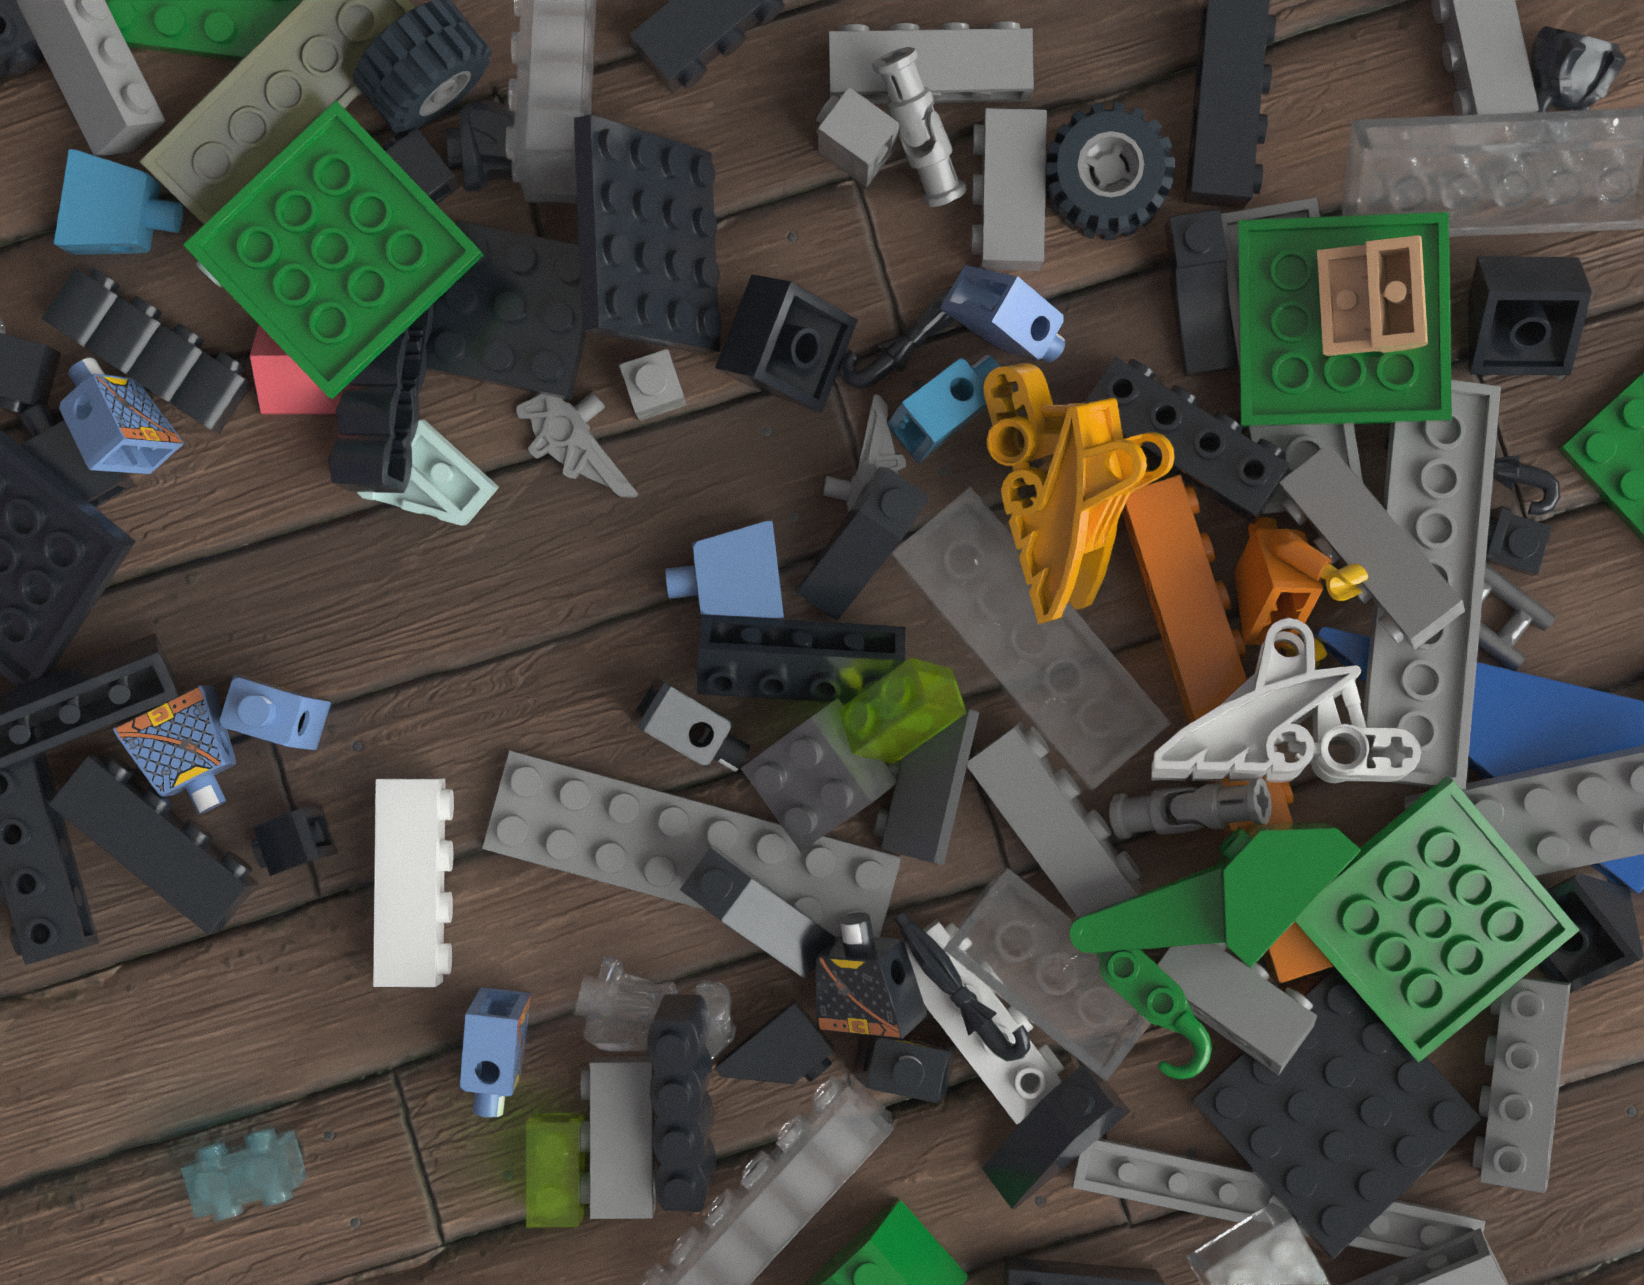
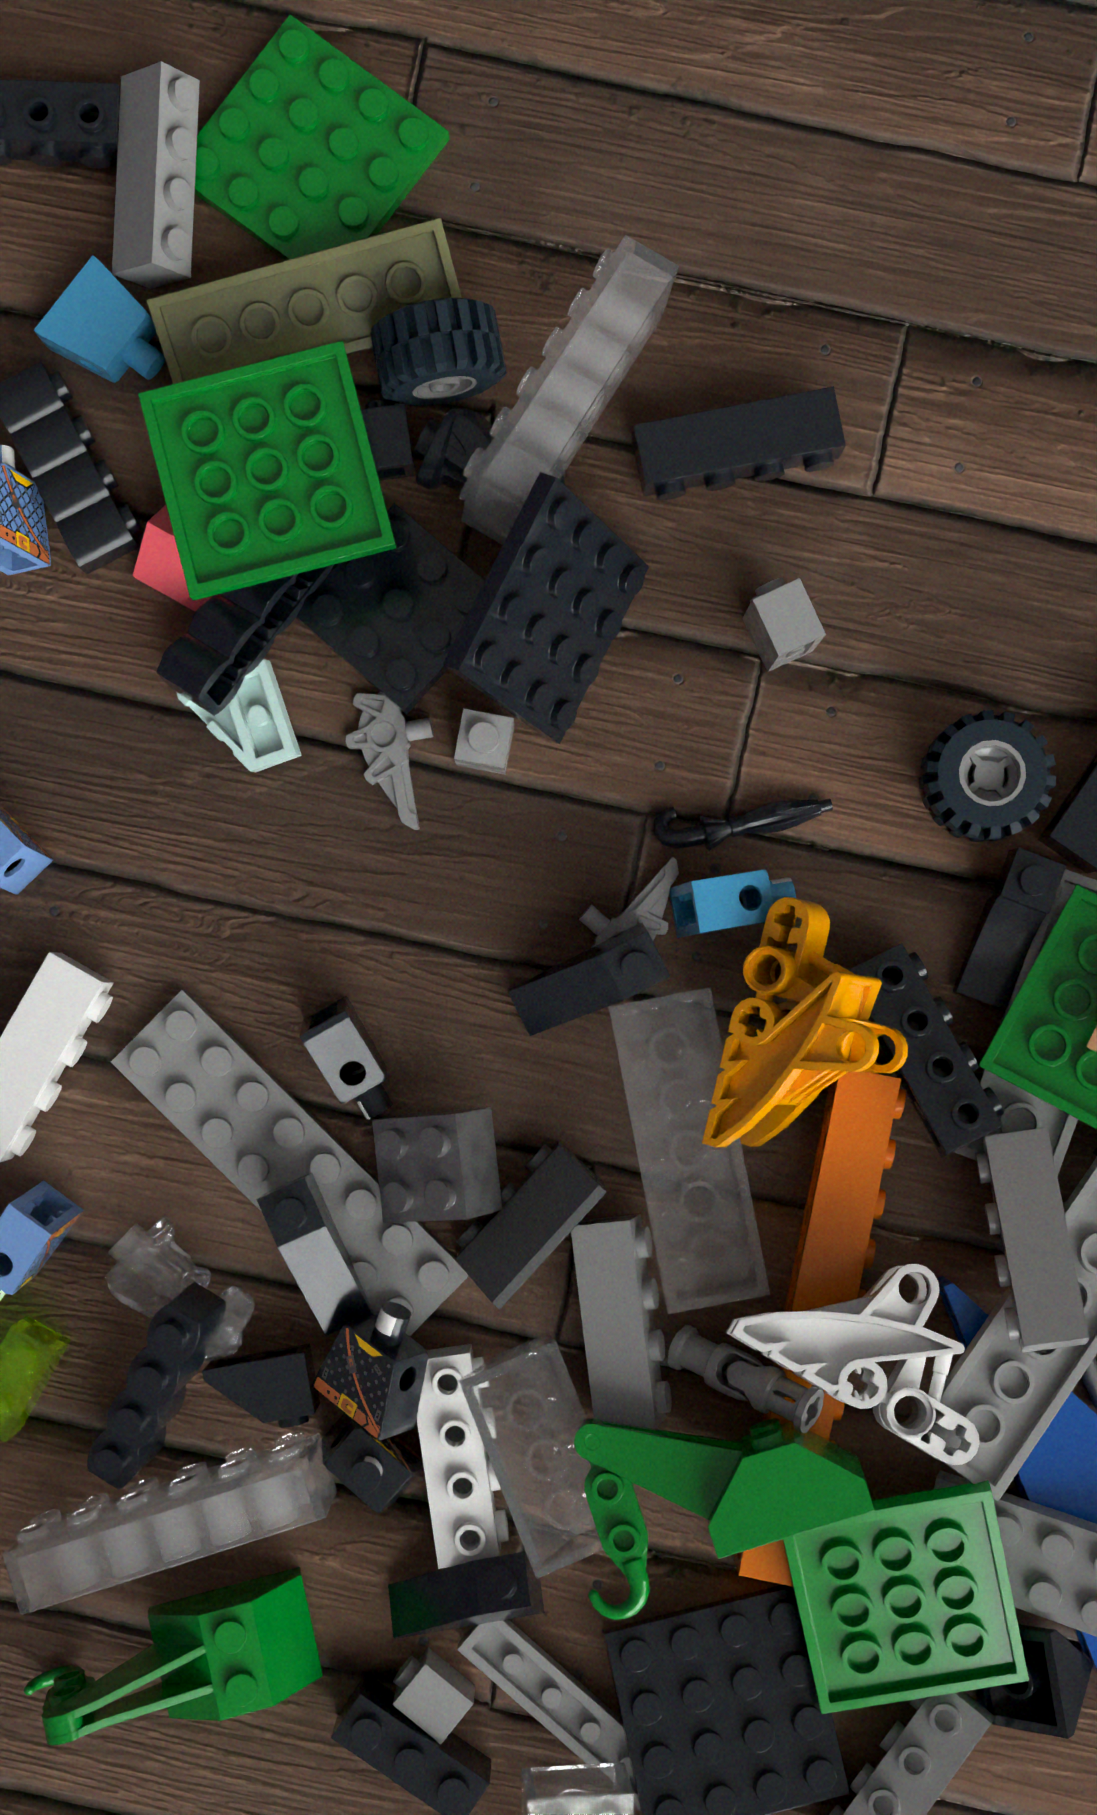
camera: 30 degrees right, 0 degrees up
(619, 1138) = (85, 1382): light grey brick -> none
(733, 574) = (461, 946): medium blue torso -> none
(786, 342) = (621, 769): black slope -> none
(794, 657) = (478, 1054): black brick -> none
(902, 711) = (540, 1151): clear neon green brick -> none
(913, 109) = (844, 642): light grey piece -> none
(951, 61) = (884, 597): light grey brick -> none
(976, 1016) = (454, 1456): black piece -> none
(1010, 189) = (891, 744): light grey brick -> none
(1021, 318) = (837, 865): medium blue torso -> none
(1073, 1238) = (432, 1694): none -> light grey brick
(1241, 1002) = (693, 1578): light grey brick -> none
(1282, 580) = (938, 1224): orange torso -> none

